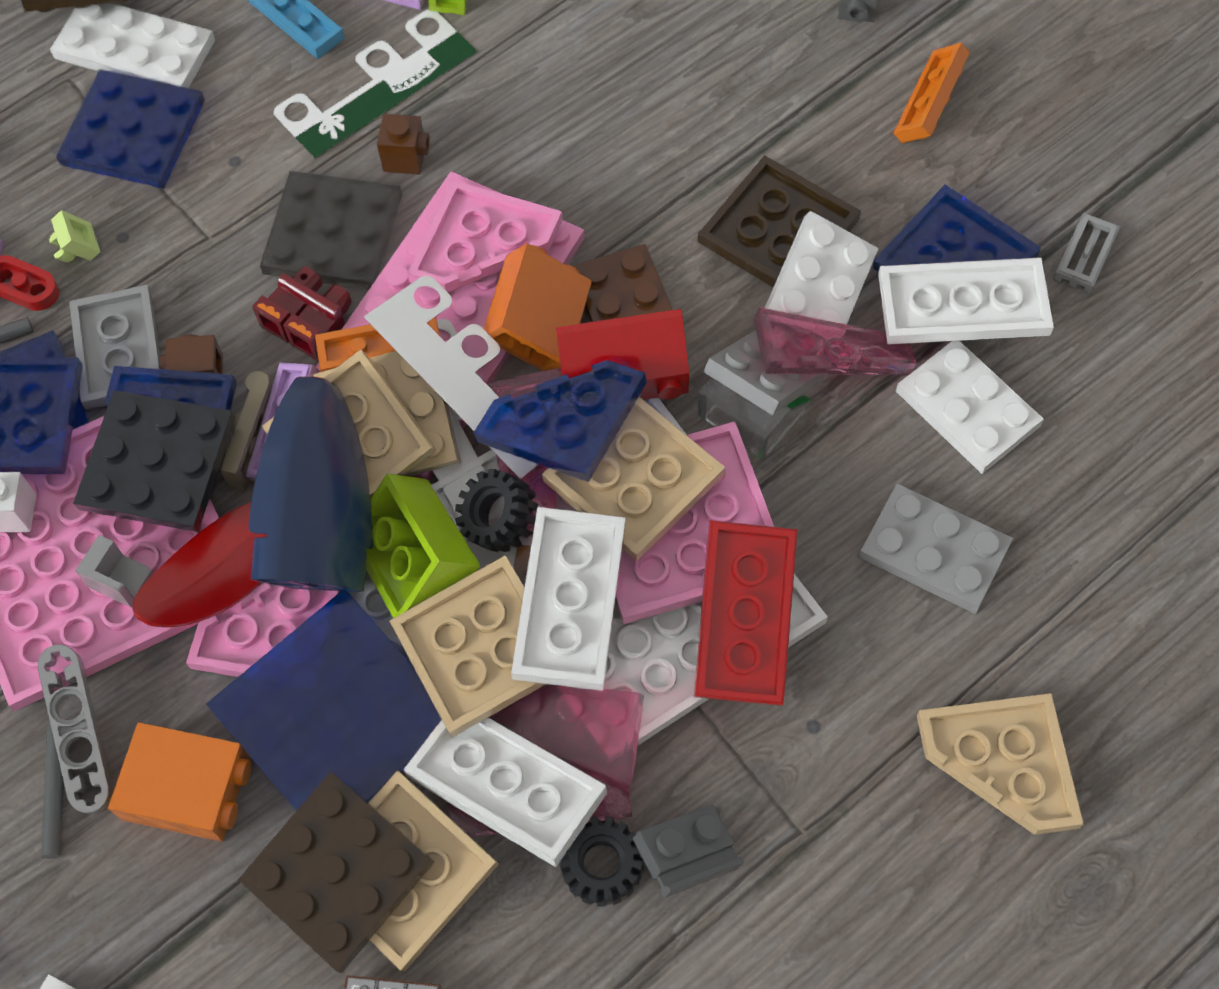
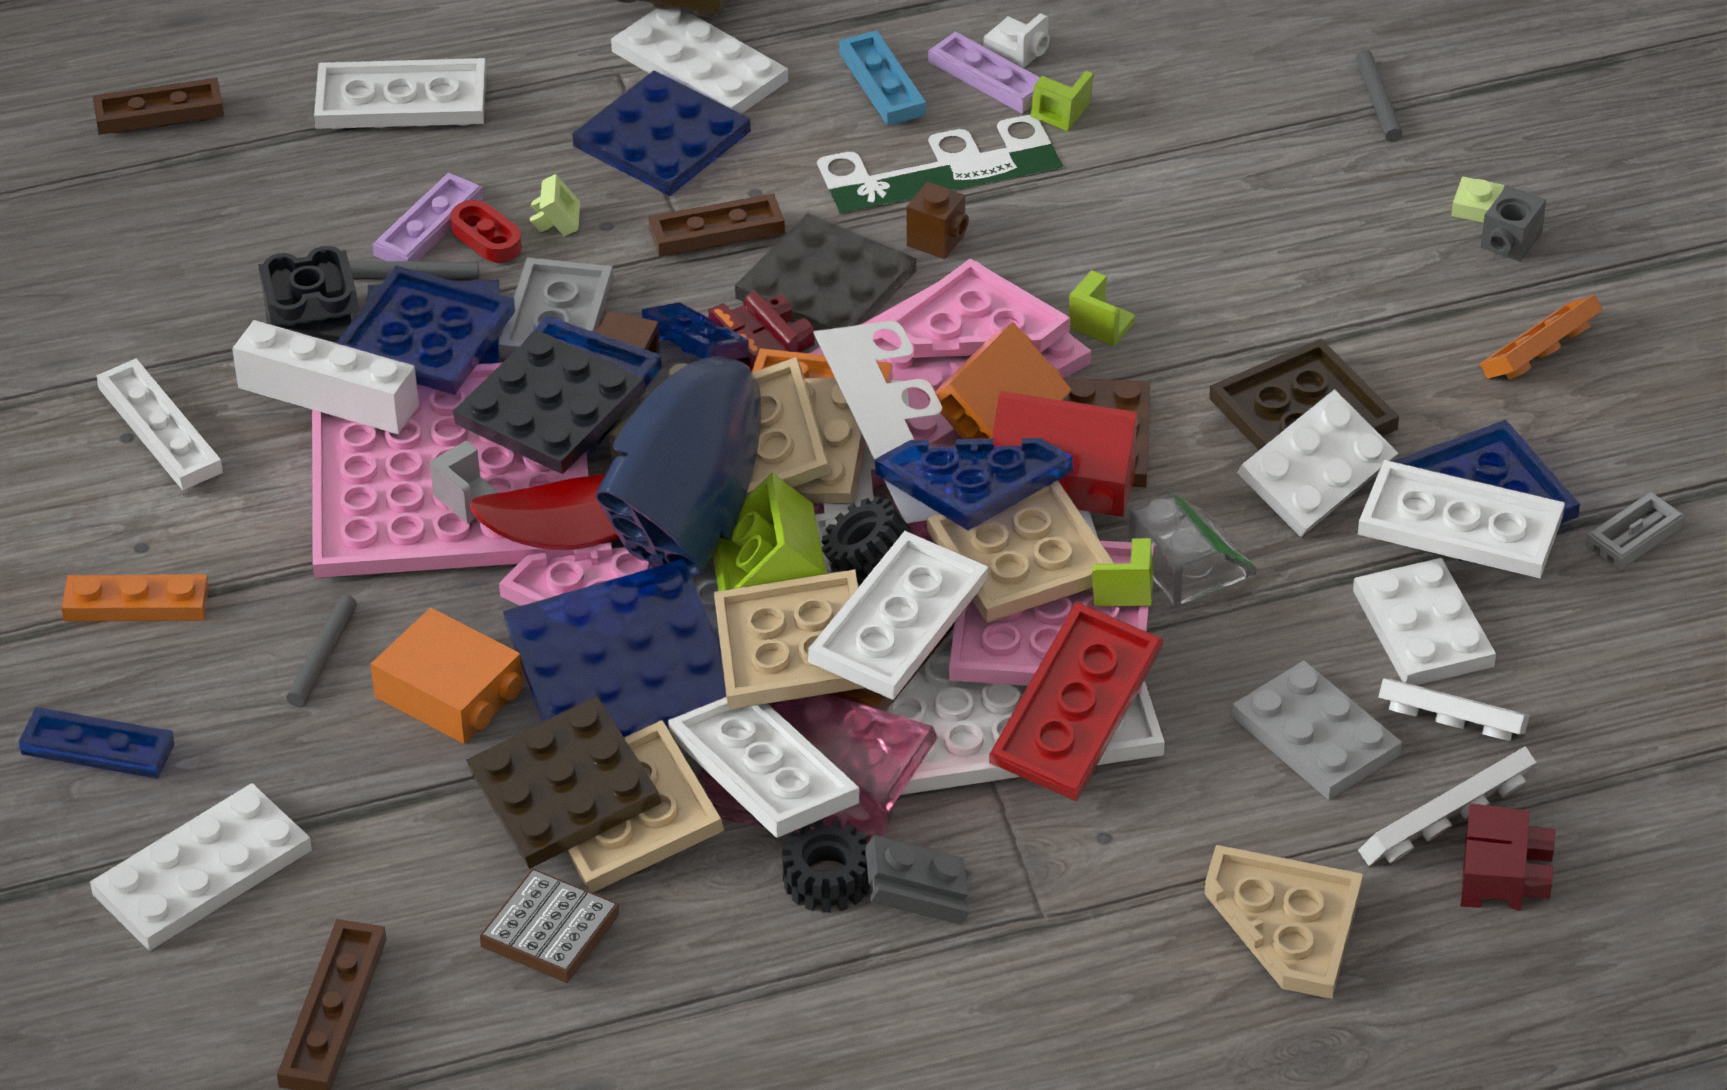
camera: 20 degrees right, 20 degrees down
(67, 731) = (363, 601): light grey beam -> none
(218, 209) = (716, 225): none -> reddish brown plate
(250, 332) = (696, 332): none -> clear blue plate
(572, 191) = (1094, 316): none -> lime panel
(742, 473) = (1126, 583): none -> lime panel
(743, 371) = (1215, 513): light grey plate -> none
(819, 346) = (1283, 509): clear pink wing -> none
(1039, 488) = (1453, 709): none -> white plate
(1082, 594) = (1434, 817): none -> white plate
(1148, 631) = (1496, 857): none -> dark red hips

